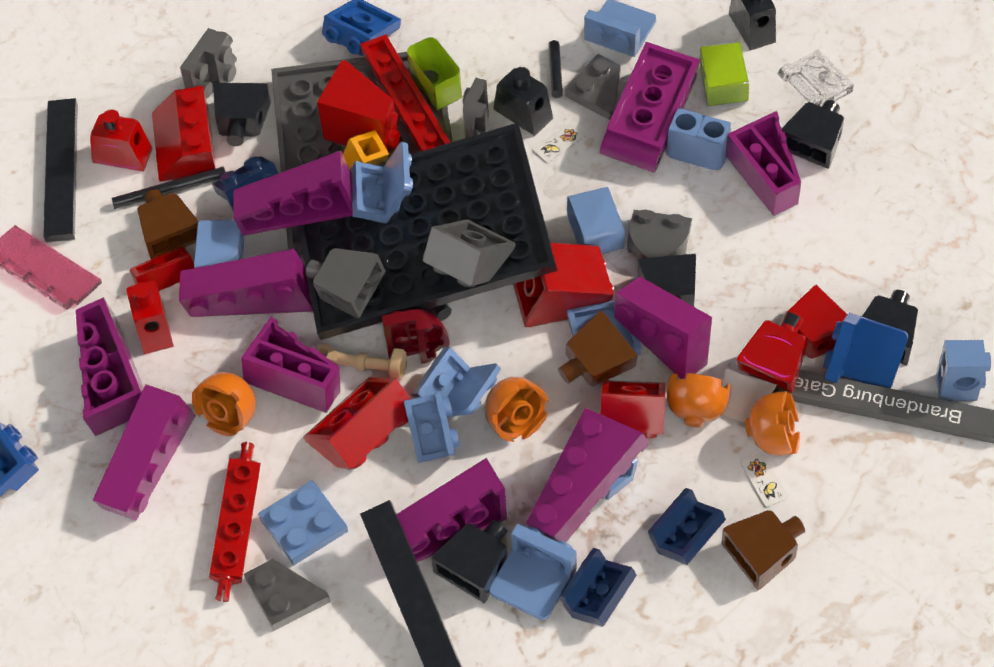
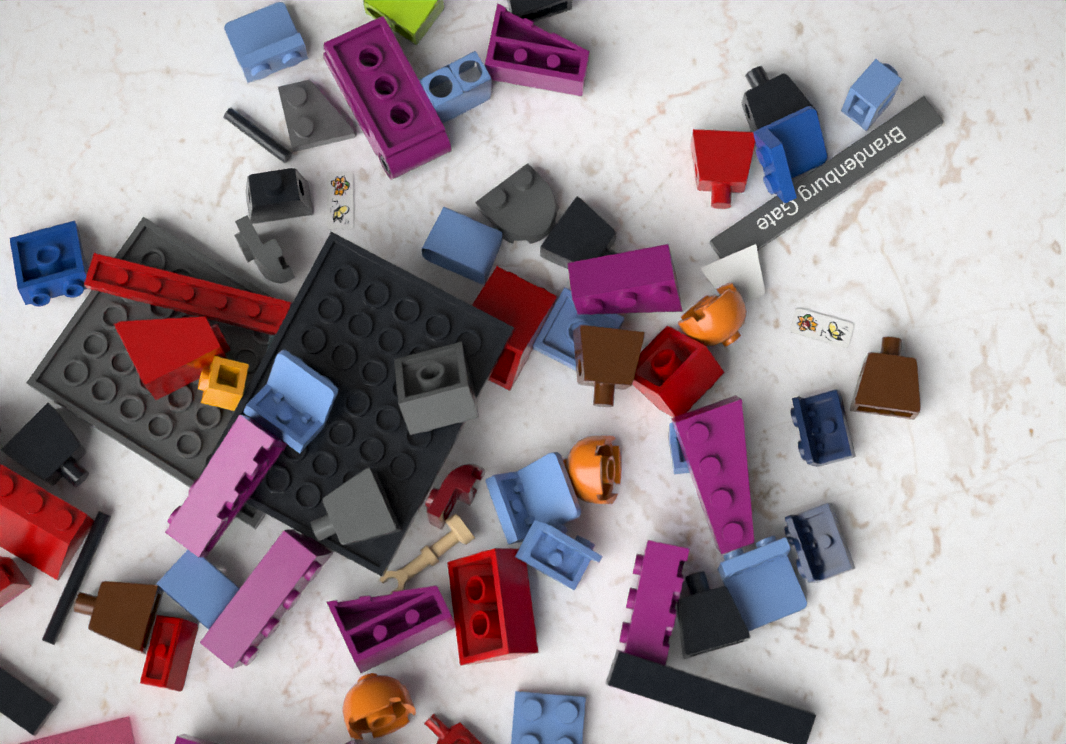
camera: 55 degrees left, 20 degrees up
(147, 307) = (223, 706): red torso -> none
(252, 171) = (141, 504): dark blue bracket -> none
(431, 55) = (165, 231): lime piece -> none
(773, 424) = (790, 280): orange cylinder -> none
(775, 352) = (732, 219): red torso -> none

